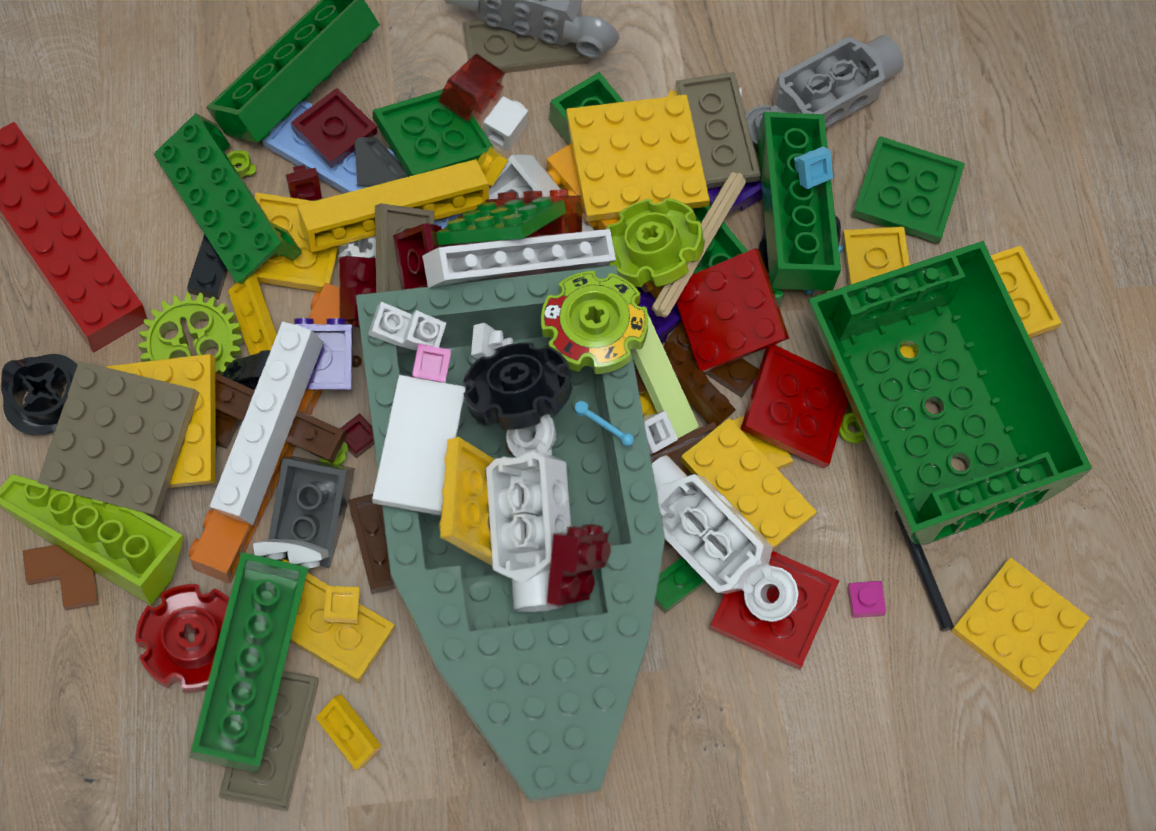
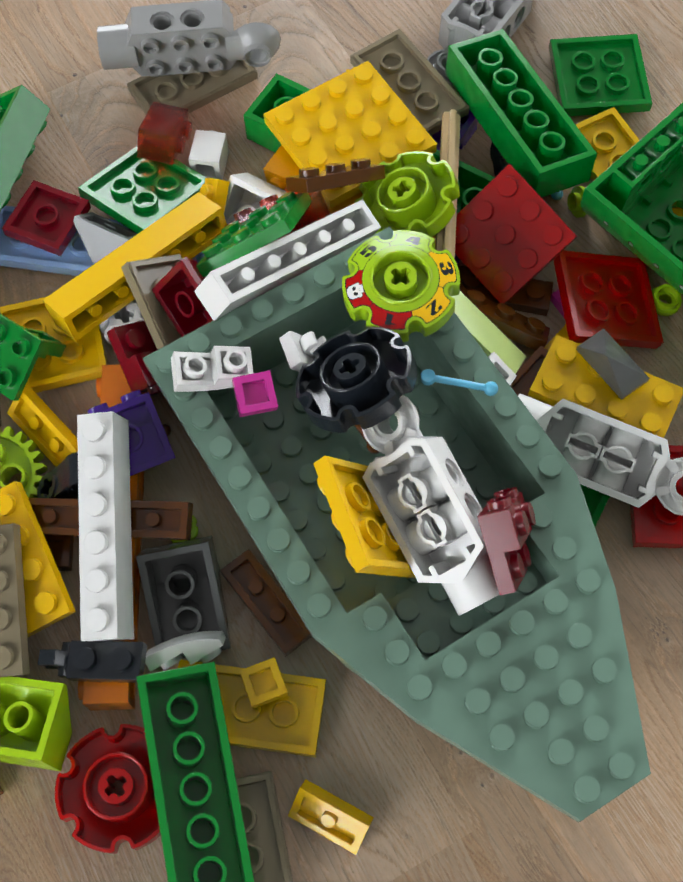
camera: 15 degrees left, 0 degrees up
(215, 529) = (97, 661): none -> black hinge
(304, 183) = (39, 281): dark red tile -> none
(359, 435) = (204, 500): dark red tile -> none
(416, 444) = (280, 484): white tile -> none
(594, 199) = (335, 176): none -> reddish brown plate
(762, 463) = (612, 364): none -> dark grey slope
(814, 167) = (524, 71): medium azure tile -> none

